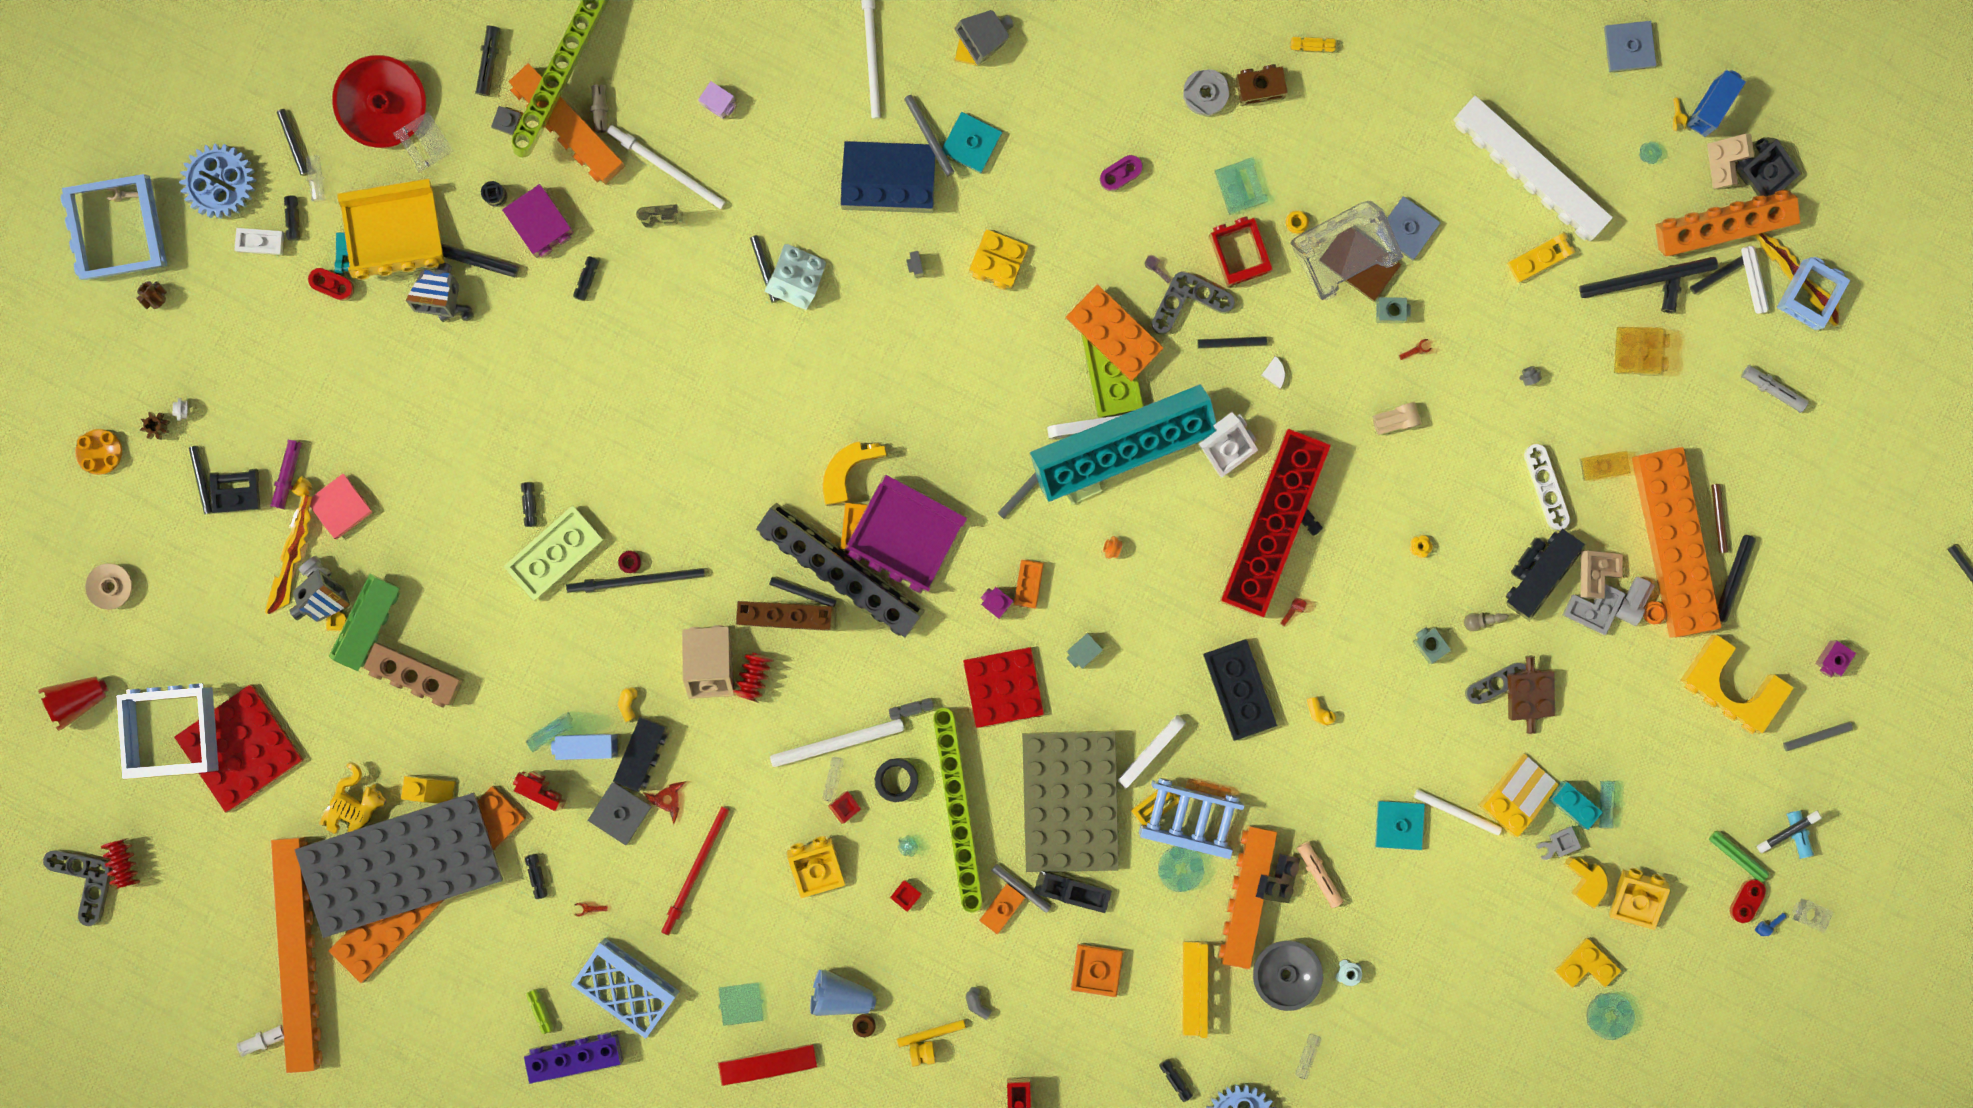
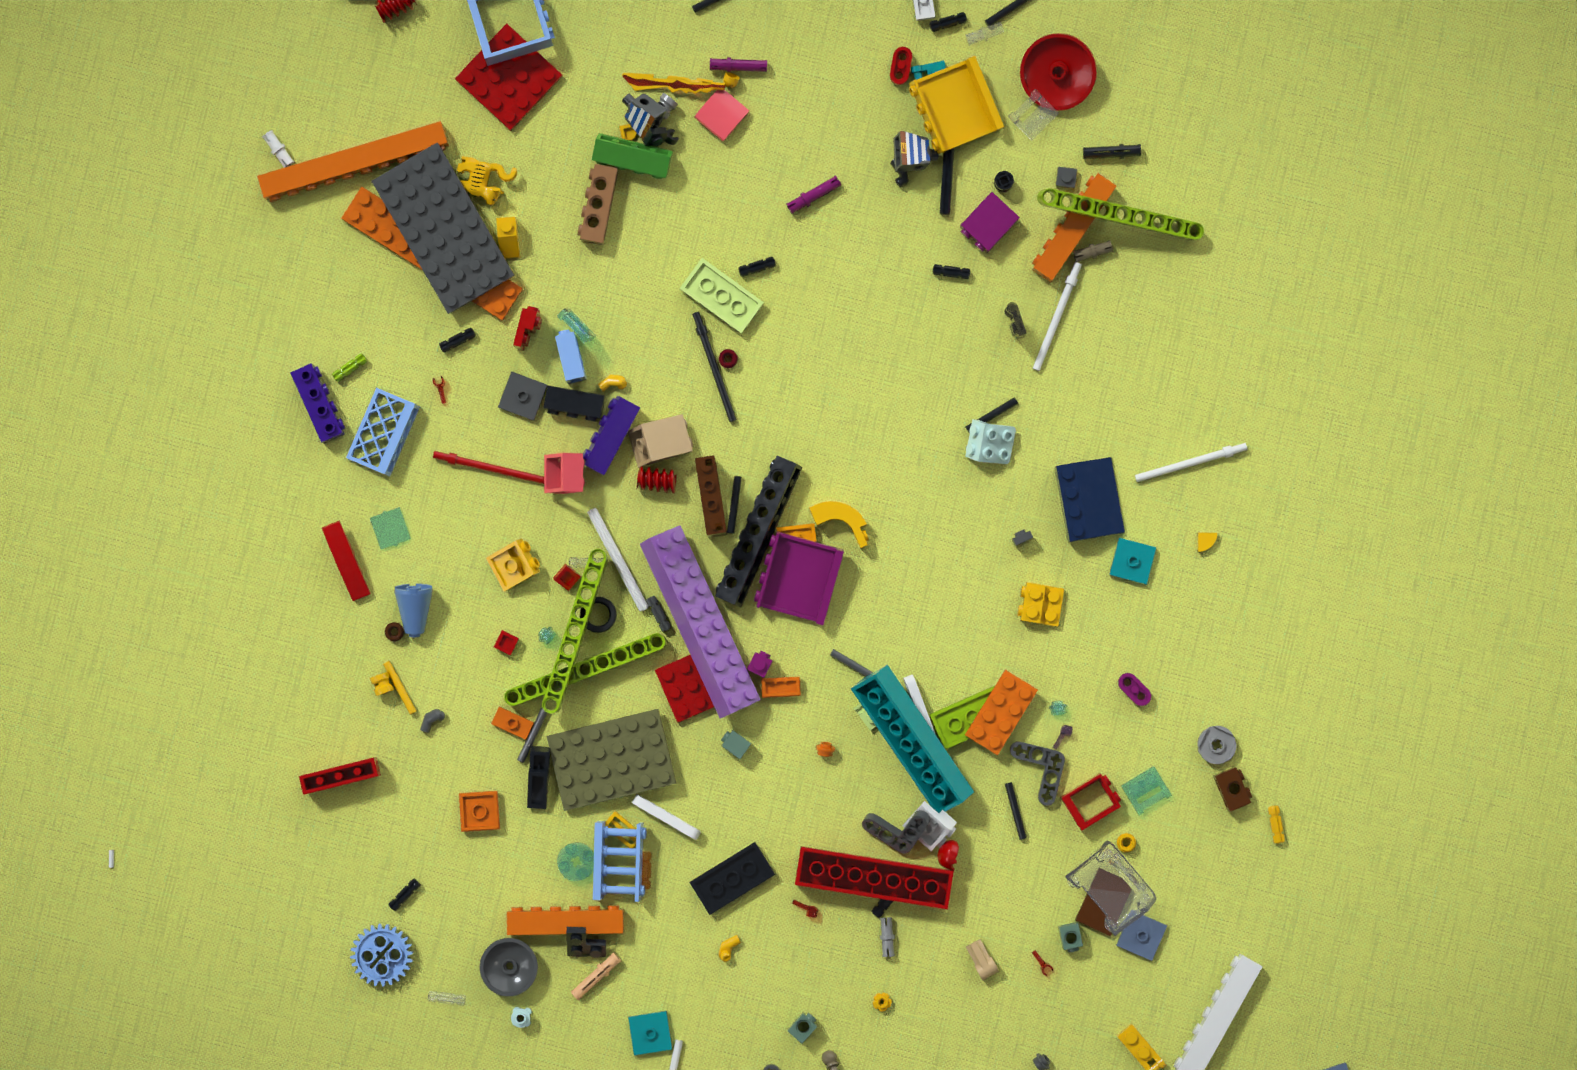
camera: 75 degrees right, 0 degrees up
(236, 498) = (709, 29): black plate -> none
(347, 588) = (658, 135): none -> black plate
(462, 429) = (807, 198): none -> magenta pin
(671, 791) = (540, 424): clear red piece -> none
(688, 720) = (610, 434): none -> dark purple brick
(717, 100) = (1120, 346): lavender brick -> none
(720, 784) = (563, 473): none -> coral piece
(921, 811) = (576, 641): none -> lime beam
(930, 137) = (1130, 525): dark grey bar -> none
(931, 662) = (699, 621): none -> medium lavender brick
(983, 34) = (1223, 552): dark grey torso -> none
(1123, 266) = (1058, 708): none -> clear light blue plate
(1195, 989) = (481, 894): yellow fence -> none
(1233, 480) = (902, 836): none -> dark grey beam
(1266, 430) = (947, 854): none -> red hair
(1275, 373) = (998, 851): white tile -> none
(1346, 523) = (887, 937): none -> light grey pin

